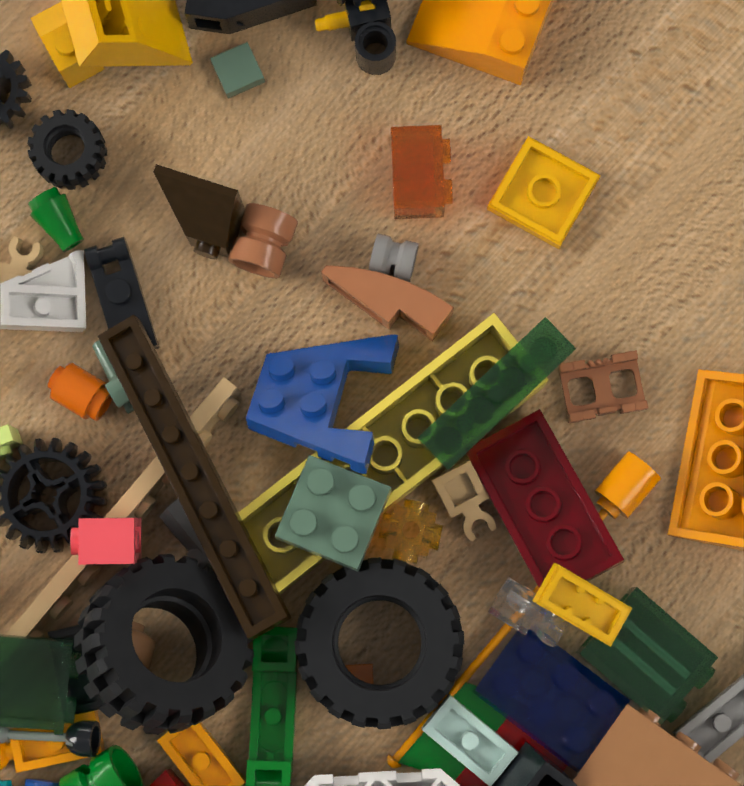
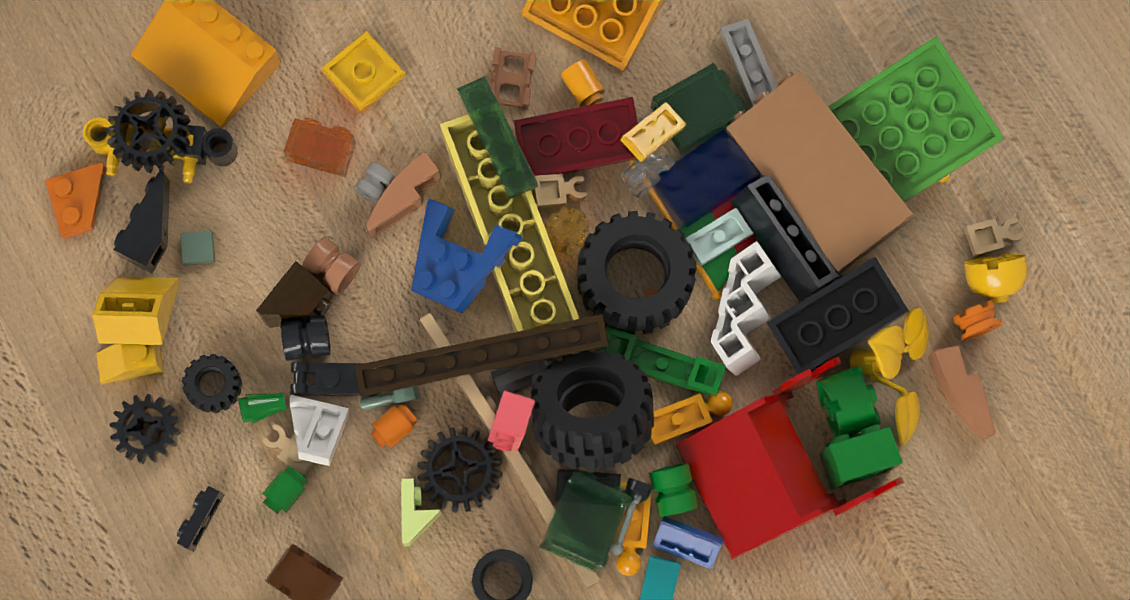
camera: 85 degrees left, 5 degrees down
(156, 238) = (305, 338): none -> black wheel
(333, 513) = (541, 268): sand green plate -> none

